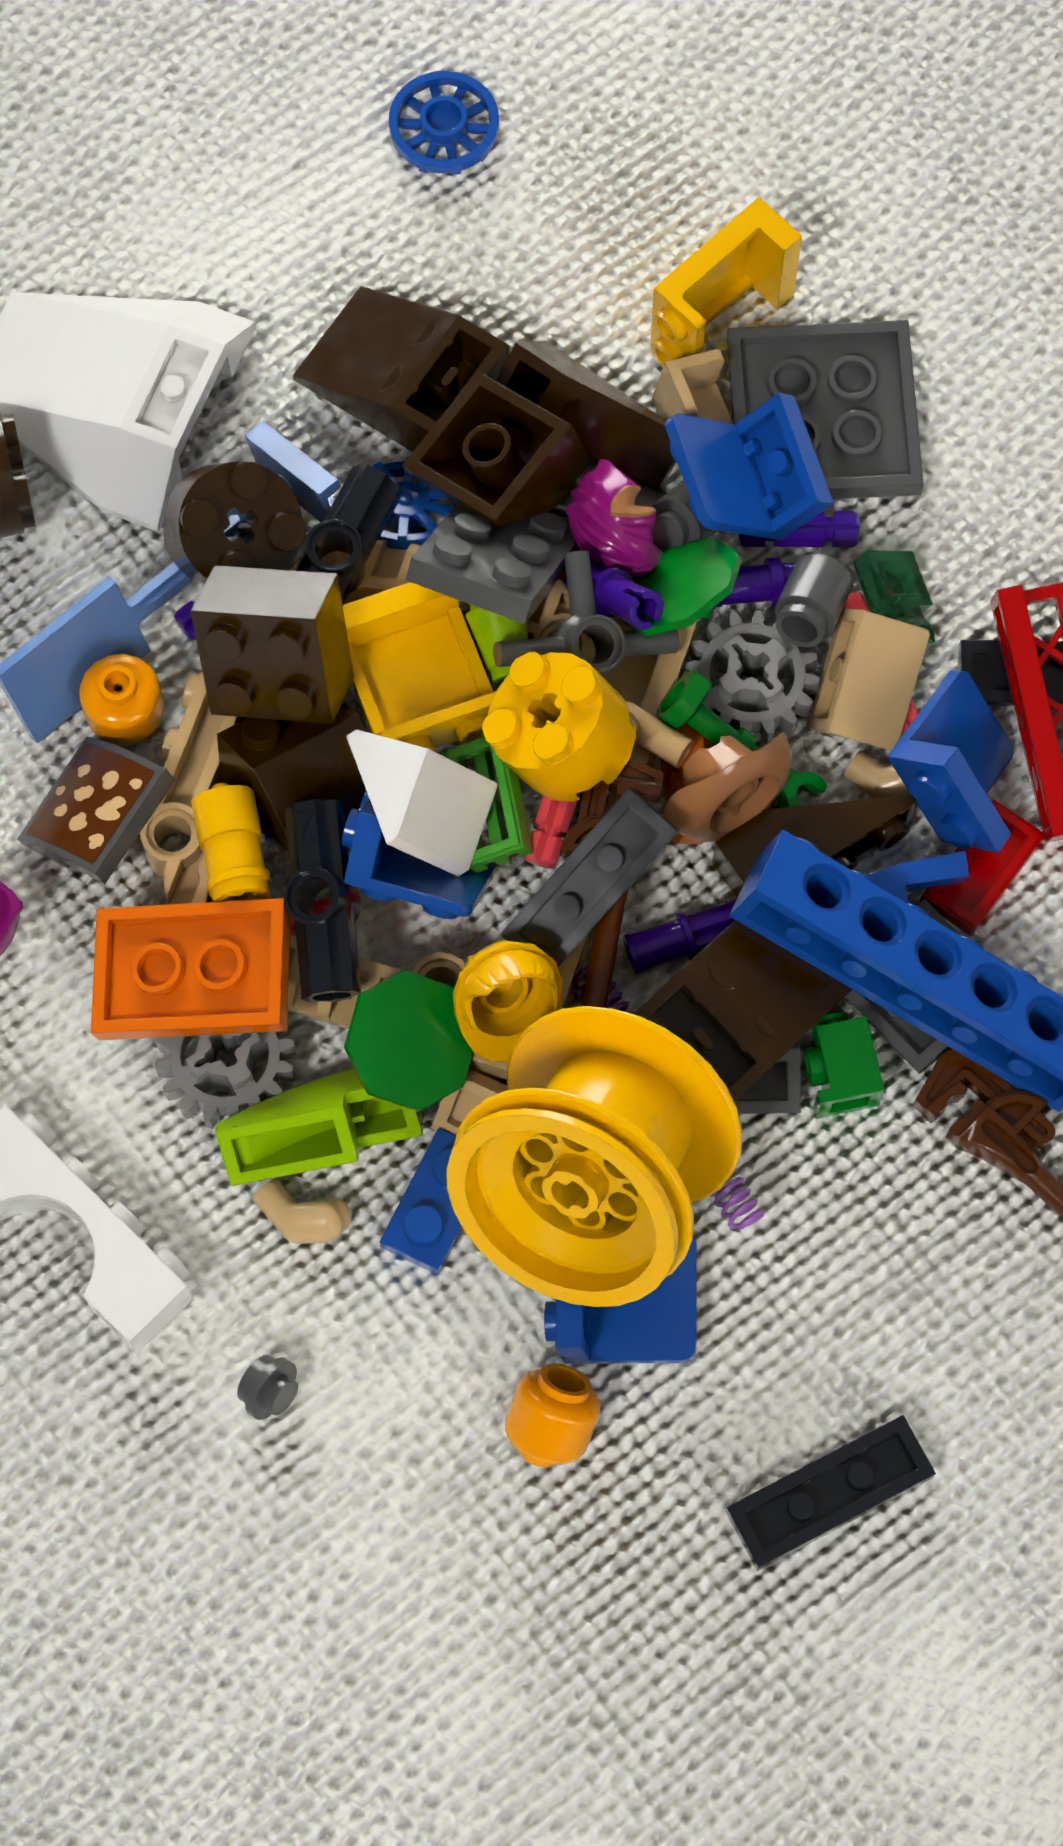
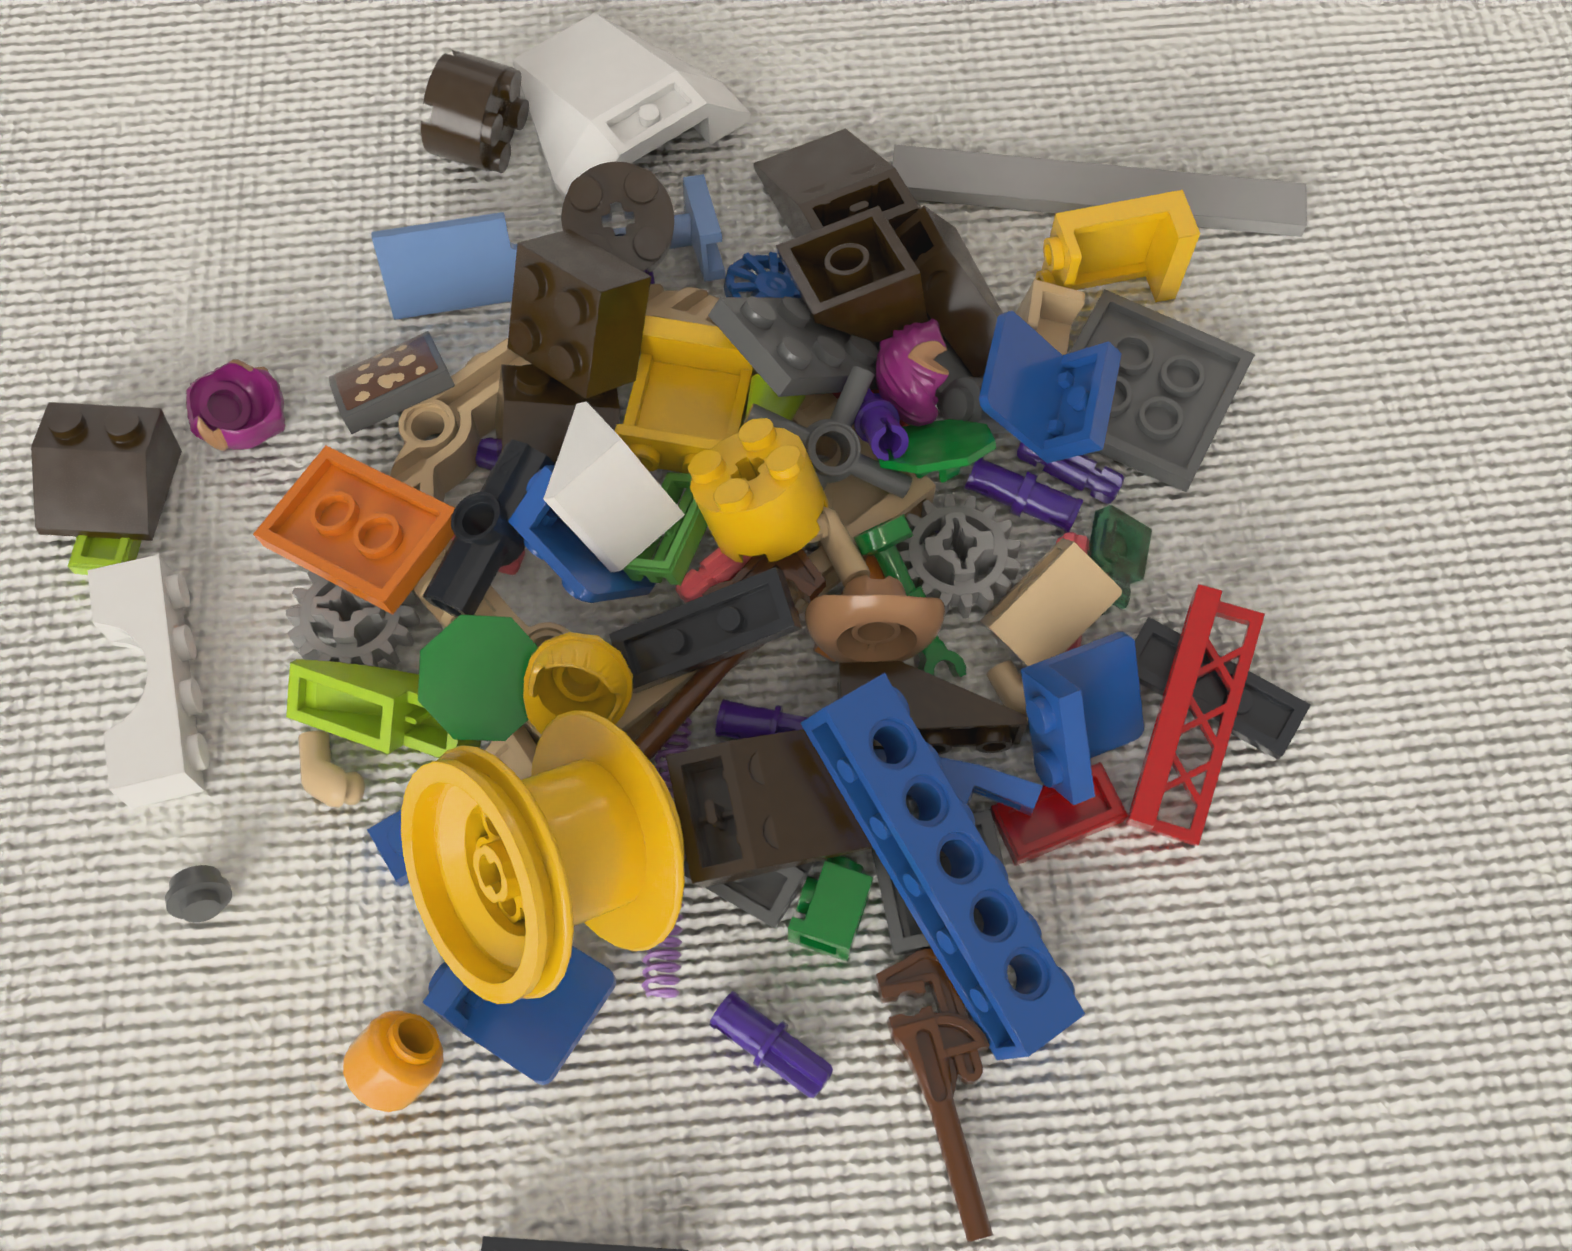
camera: 30 degrees right, 5 degrees down
(121, 699) = (466, 314): light orange head -> none
(231, 844) = (454, 449): yellow piece -> none
(352, 526) = (706, 274): black piece -> none
(444, 122) = (982, 54): blue wheel -> none
(653, 218) = (1072, 185): none -> light grey tile
(812, 599) = (1040, 517): dark grey brick -> none
(862, 1212) = (771, 1045): none -> dark purple axle

